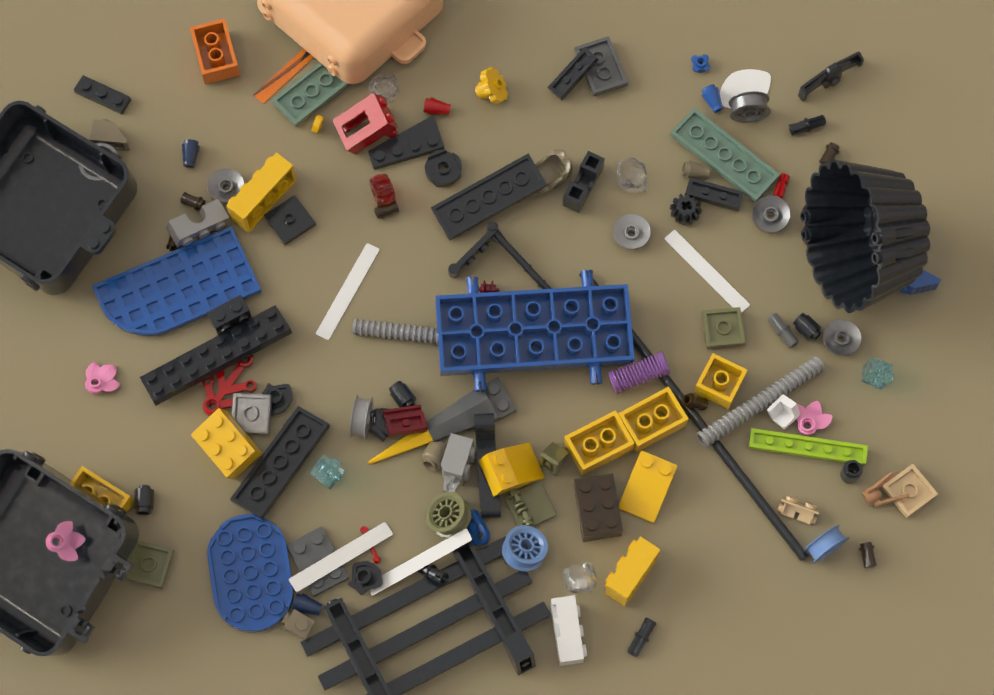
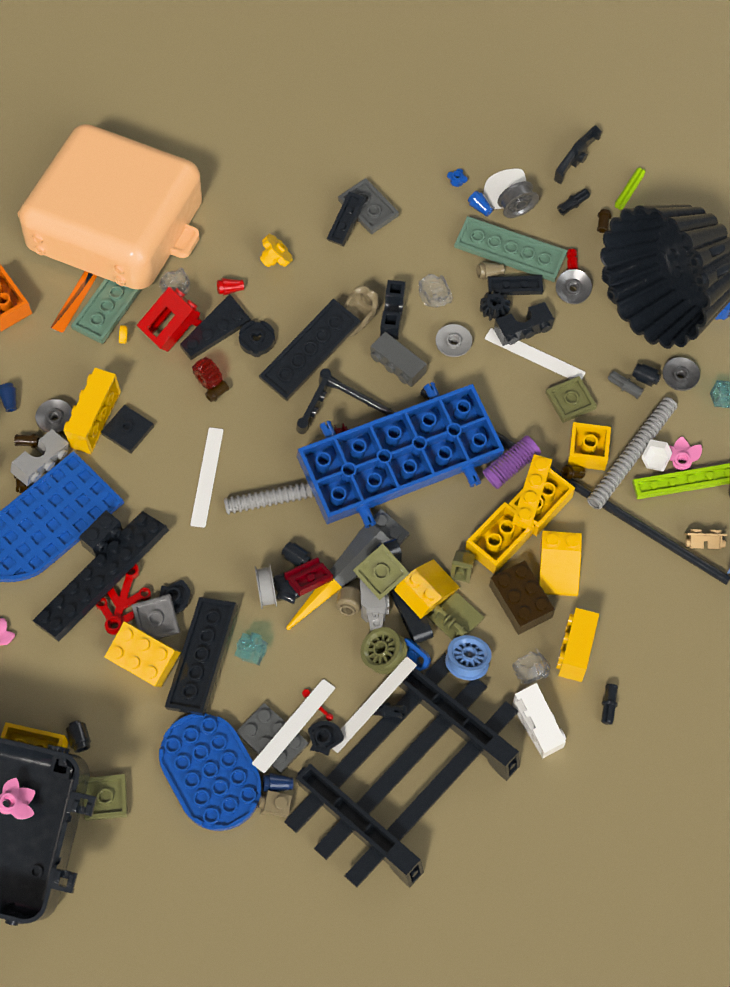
camera: 20 degrees left, 5 degrees down
(468, 441) = (381, 571): none -> olive plate
(570, 234) = (398, 359): none -> dark grey brick
(644, 409) = (532, 492): none -> yellow plate
(692, 240) = (511, 330): none -> black arch
(870, 128) = (629, 188): none -> lime axle

